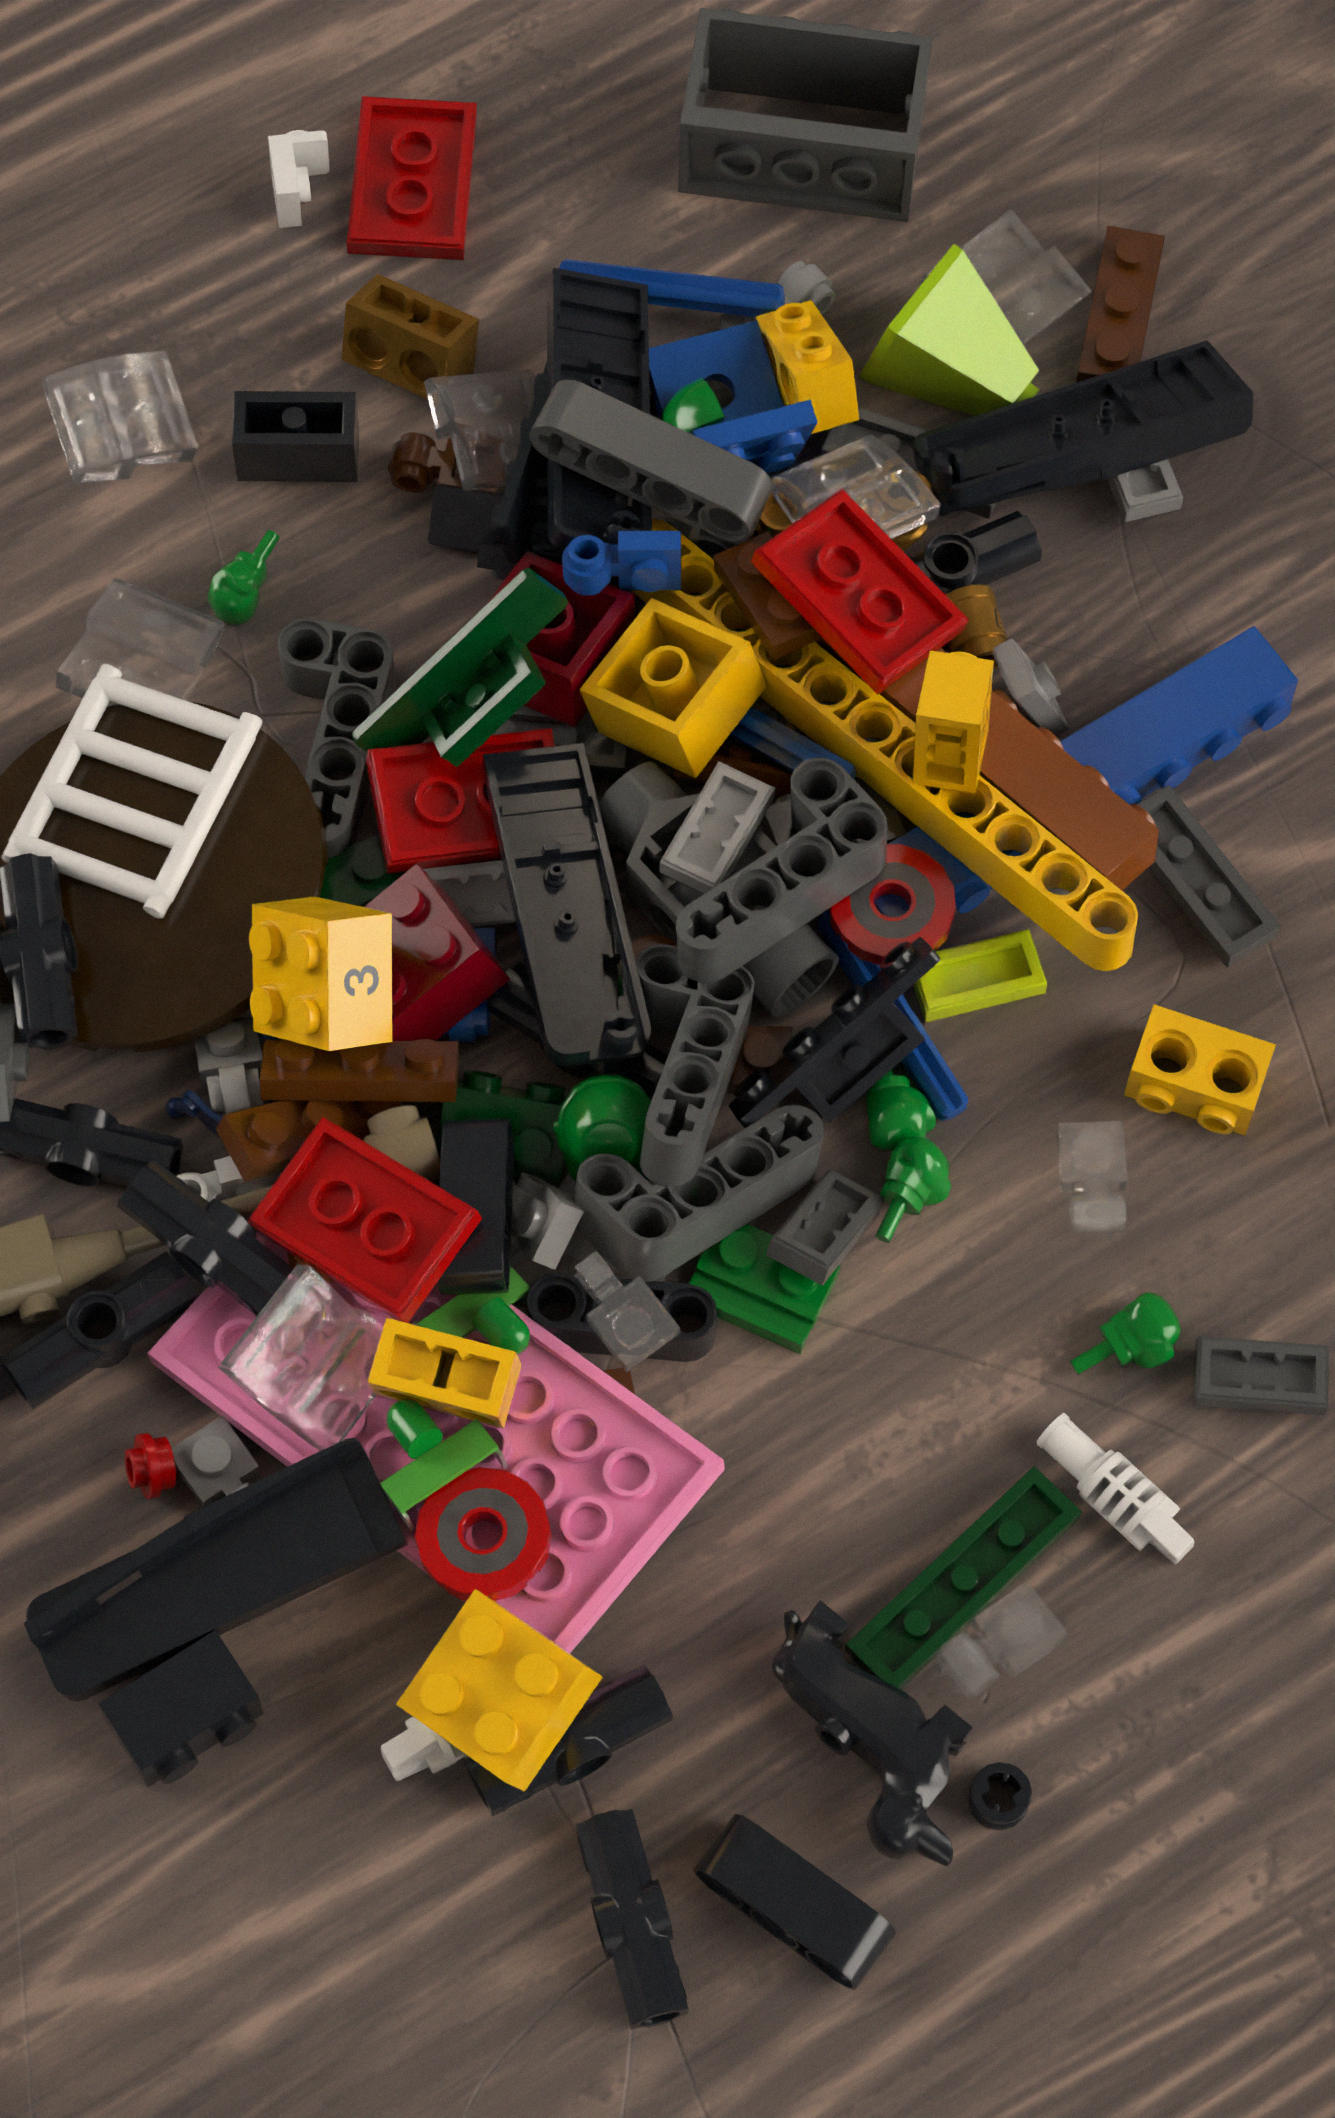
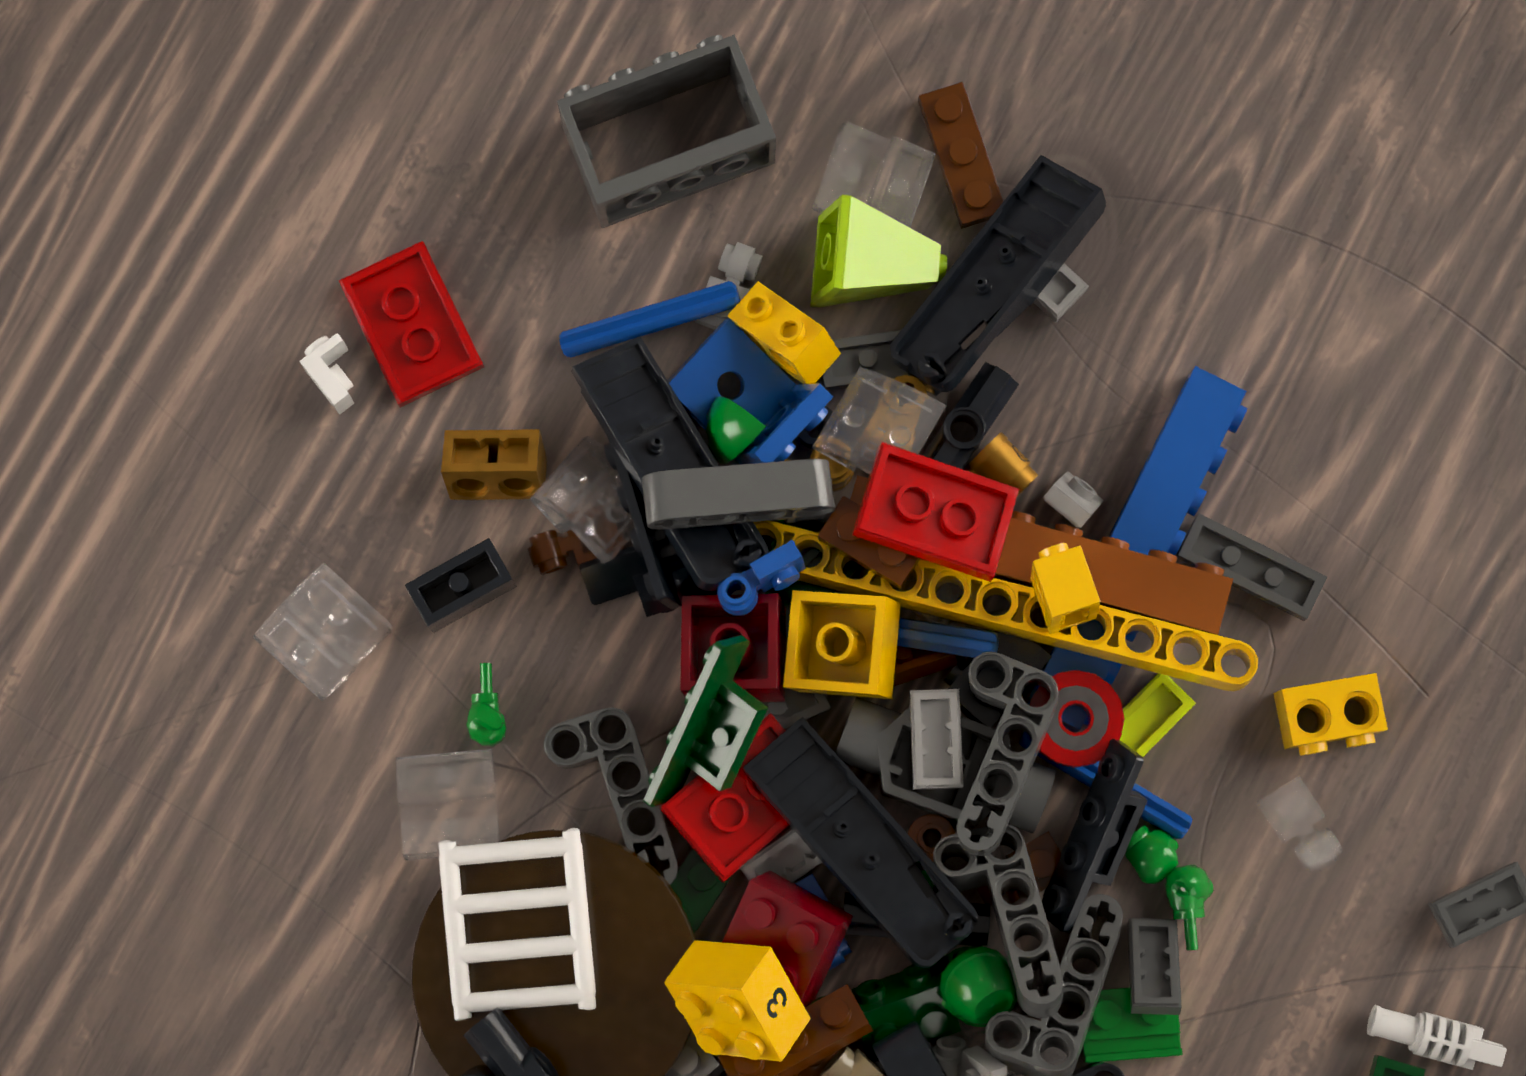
camera: 30 degrees left, 15 degrees up
(1138, 1333) = (1390, 919): green piece -> none

